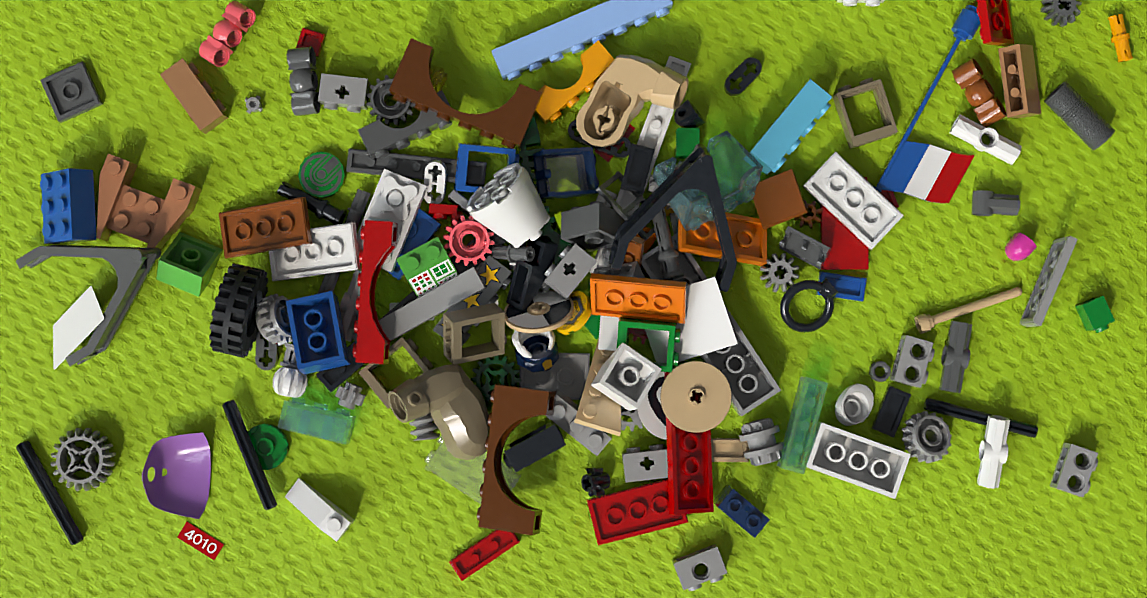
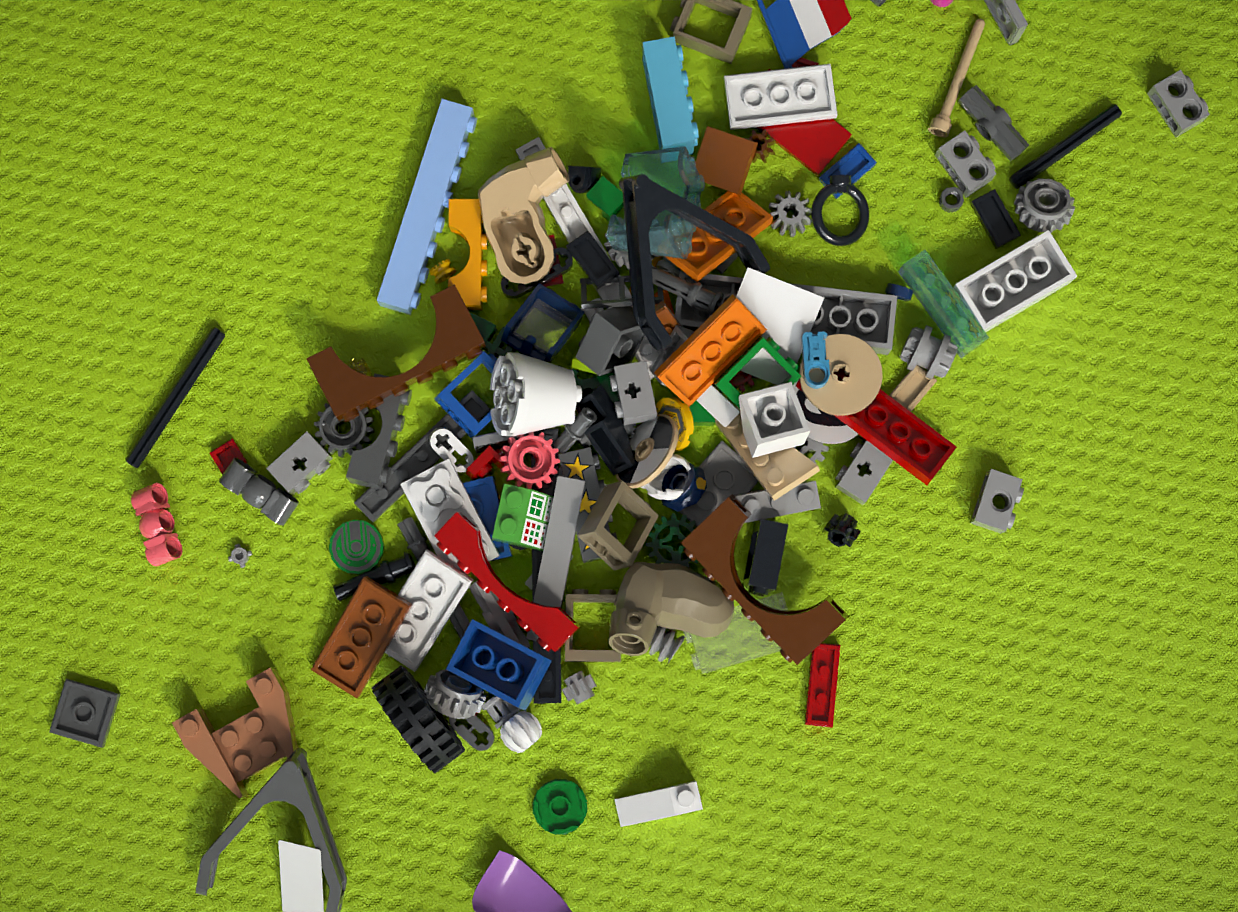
camera: 45 degrees left, 5 degrees down
(68, 206) = (188, 800): blue brick -> none
(188, 264) = (334, 736): bright green slope -> none
(194, 95) = (186, 601): medium nougat brick -> none
(249, 454) = (556, 825): black axle -> none
(317, 420) = (576, 737): clear light blue brick -> none
(548, 77) = (442, 271): none -> yellow bush
(632, 512) = (898, 519): red piece -> none
(692, 369) = (815, 357): none -> dark azure piece
(741, 511) = (969, 422): dark blue window -> none
(746, 80) = (582, 103): black beam -> none
(786, 388) = (901, 292): none -> dark blue tile
(804, 247) = (786, 172): dark grey hinge -> none
(854, 404) = (963, 245): white hat -> none
(993, 451) = (1105, 158): white piece -> none

